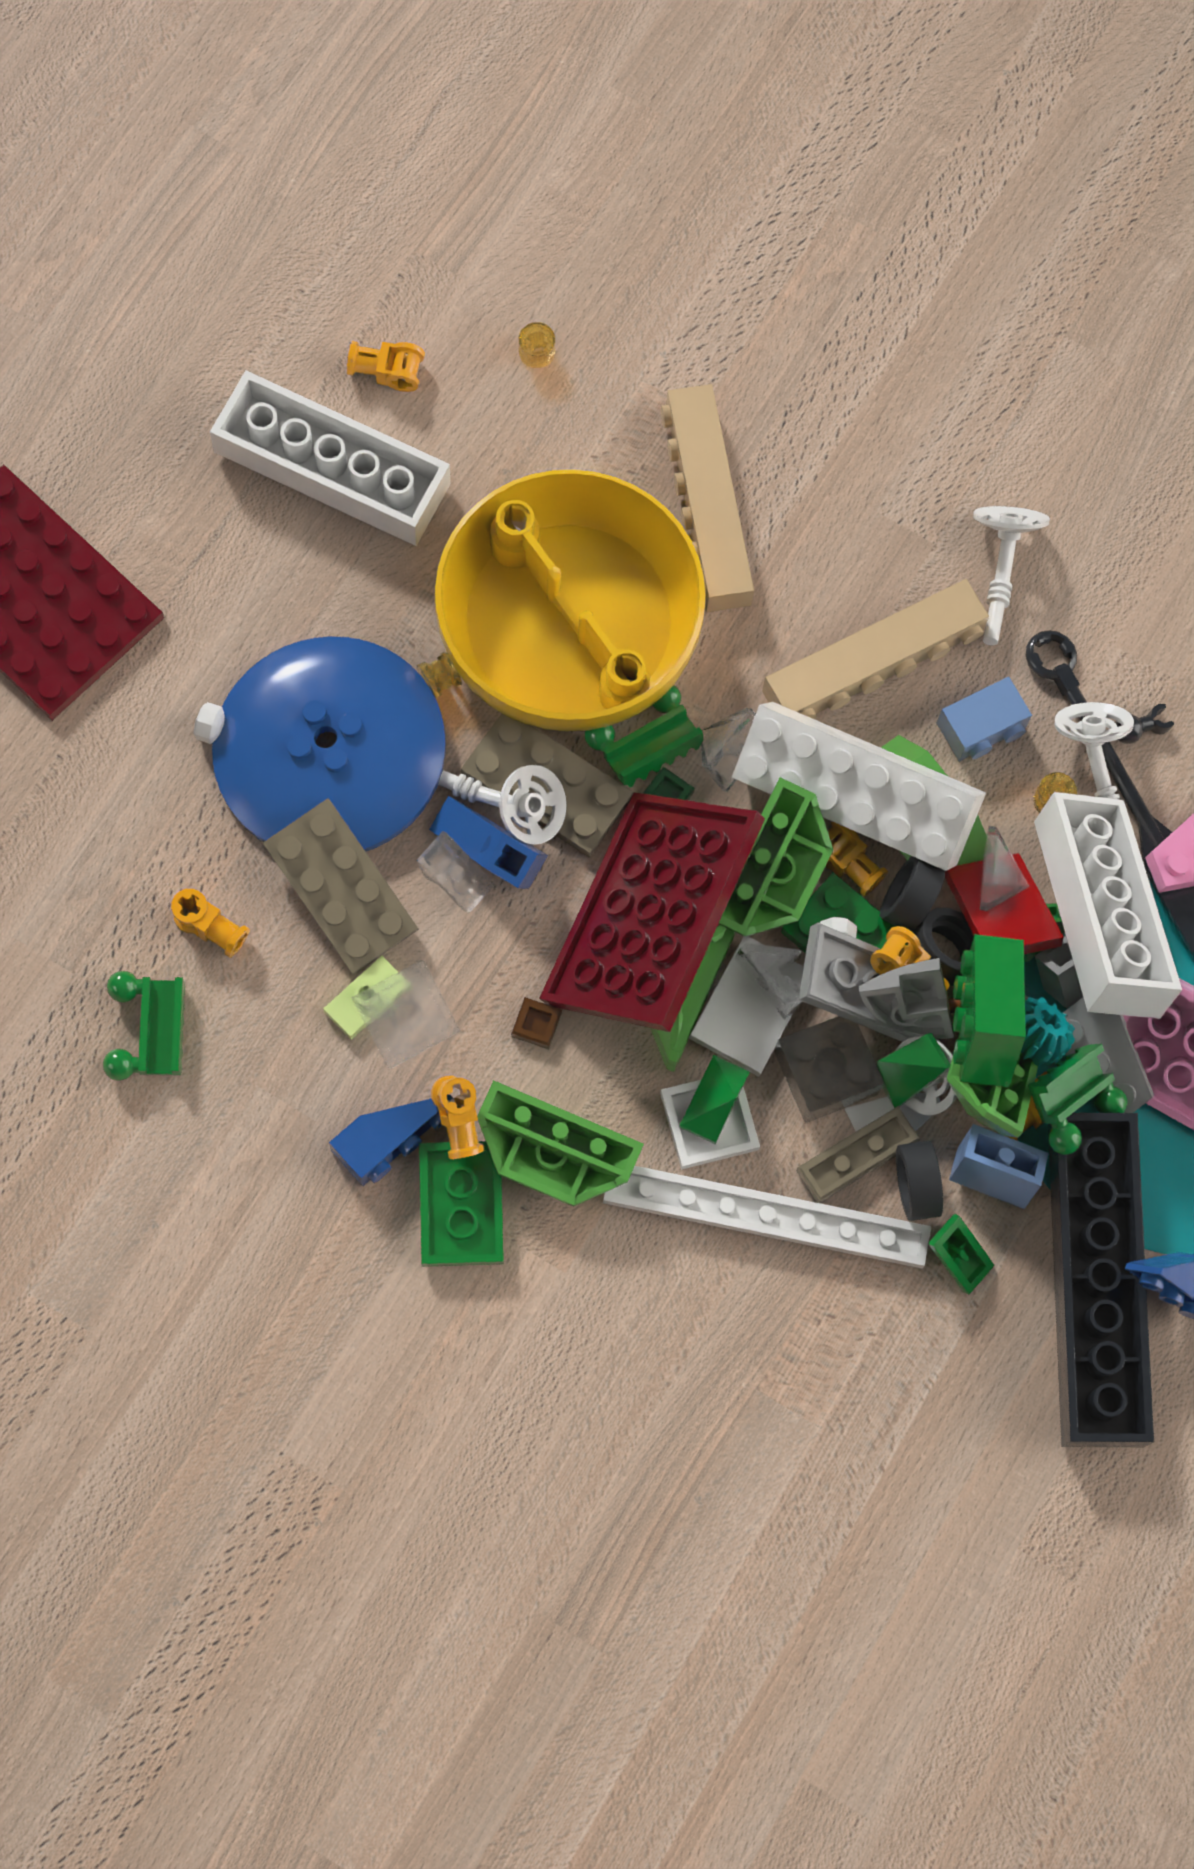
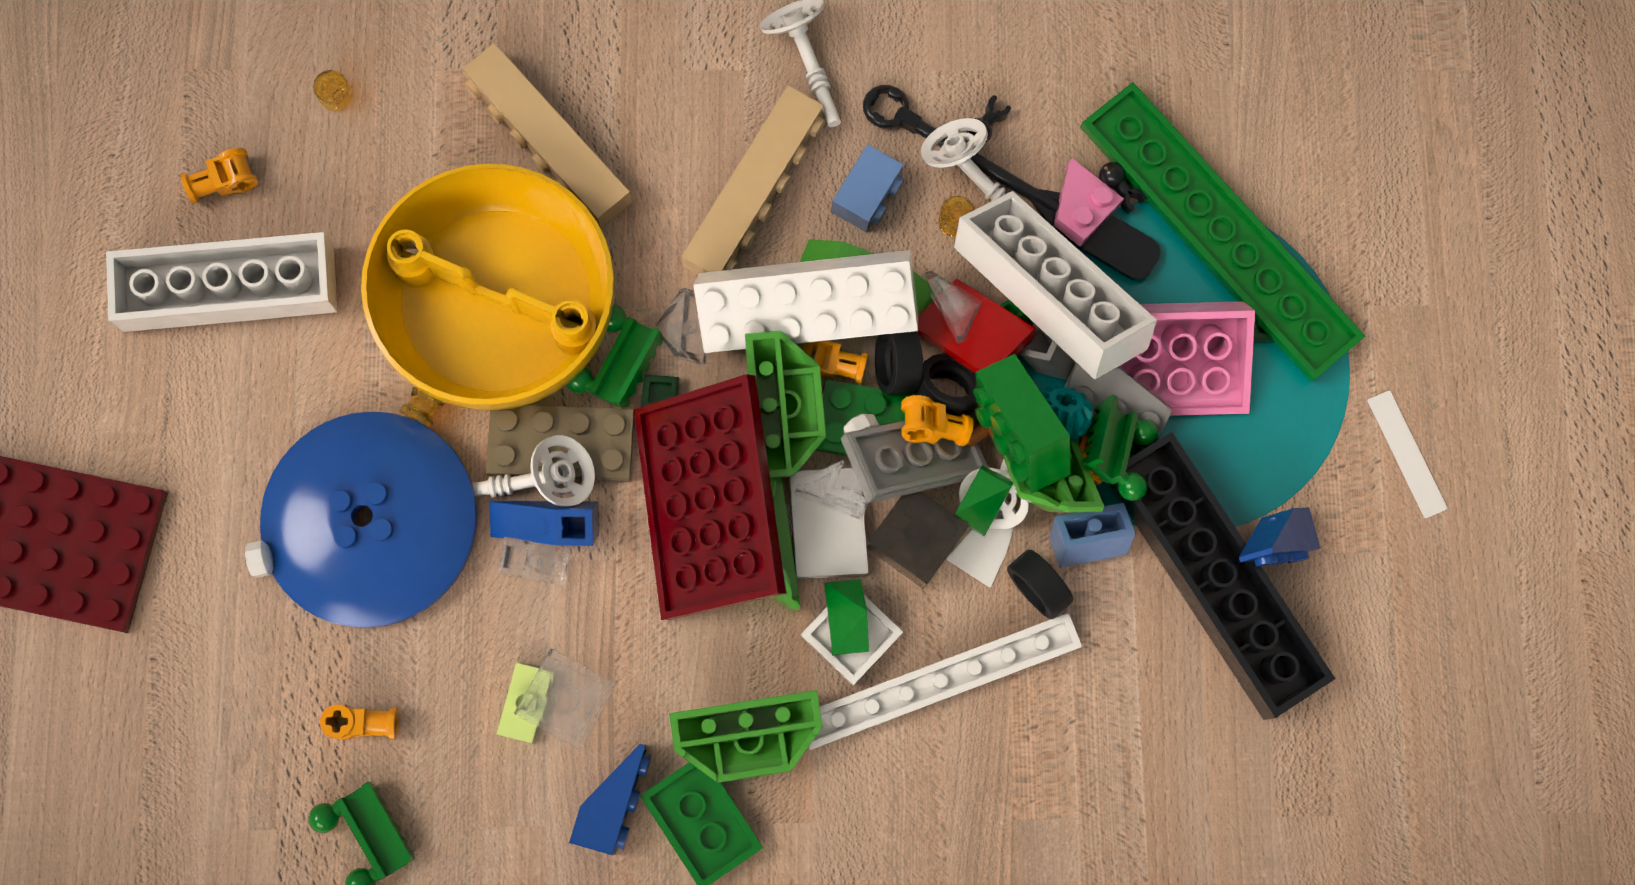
camera: 35 degrees left, 5 degrees up
(340, 886) = (448, 628): dark tan plate -> none
(458, 1115) = (658, 759): light orange connector -> none
(536, 1023) = (671, 639): reddish brown tile -> none
(856, 1155) = (979, 590): dark tan tile -> none
(913, 998) = (952, 447): light grey brick -> none
(961, 1254) = (1103, 620): green slope -> none

